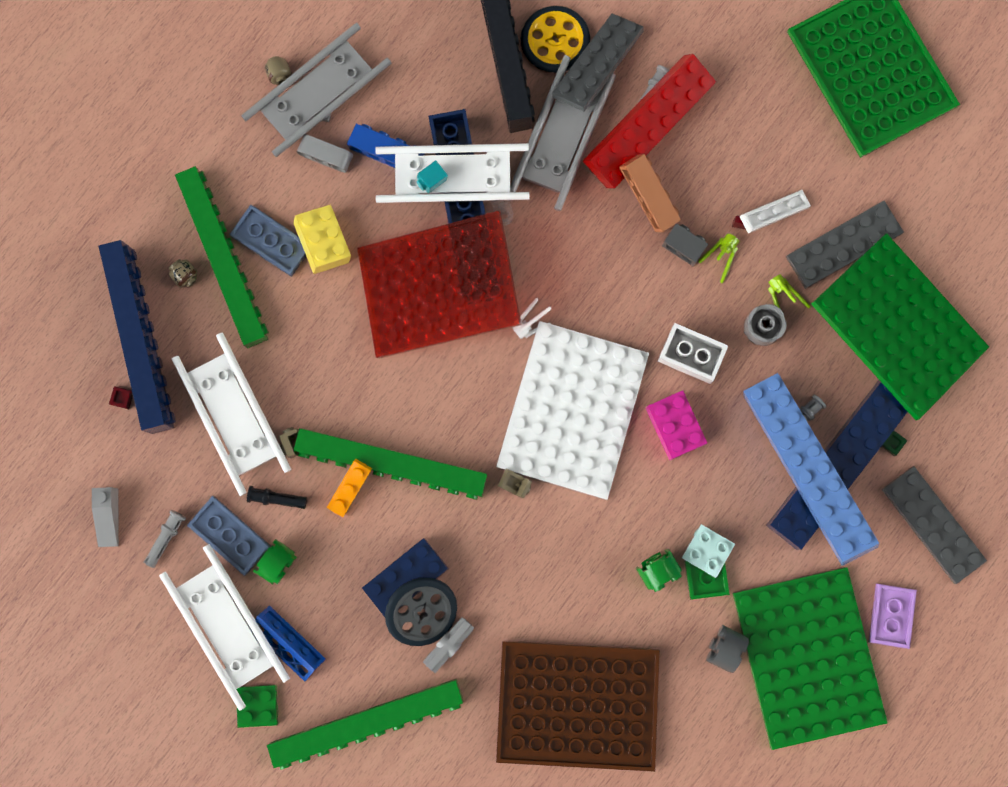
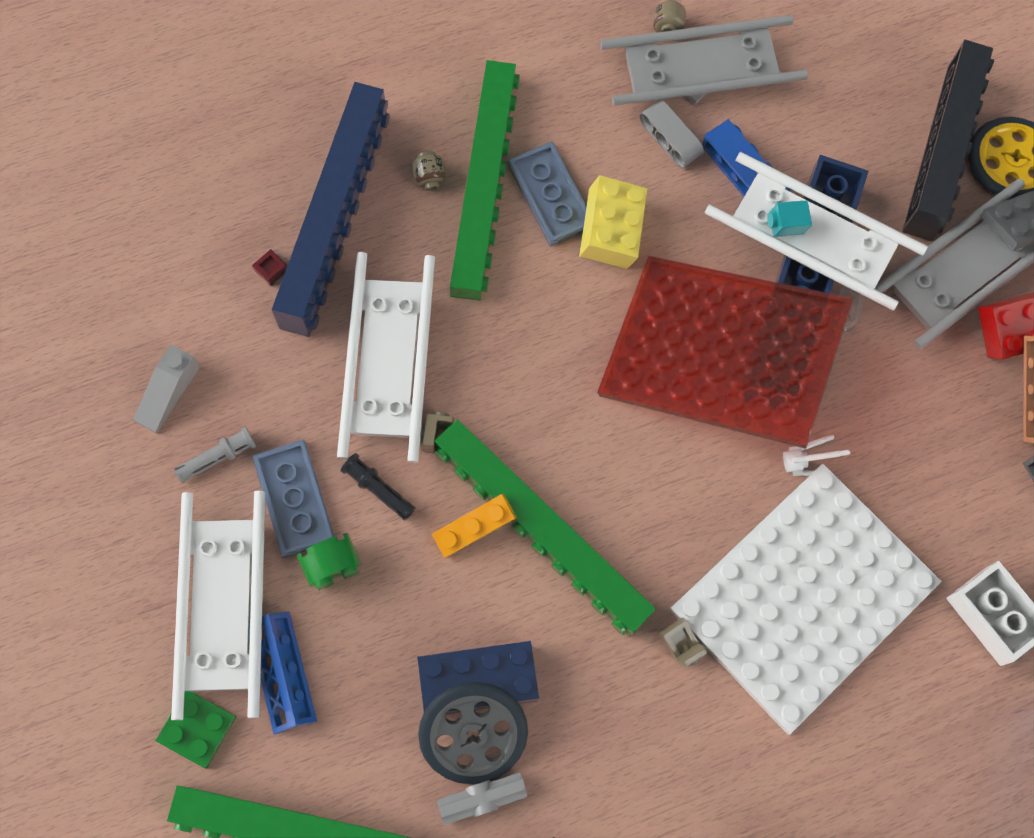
camera: 20 degrees right, 10 degrees down
(676, 425) = (931, 692): dark pink brick -> none

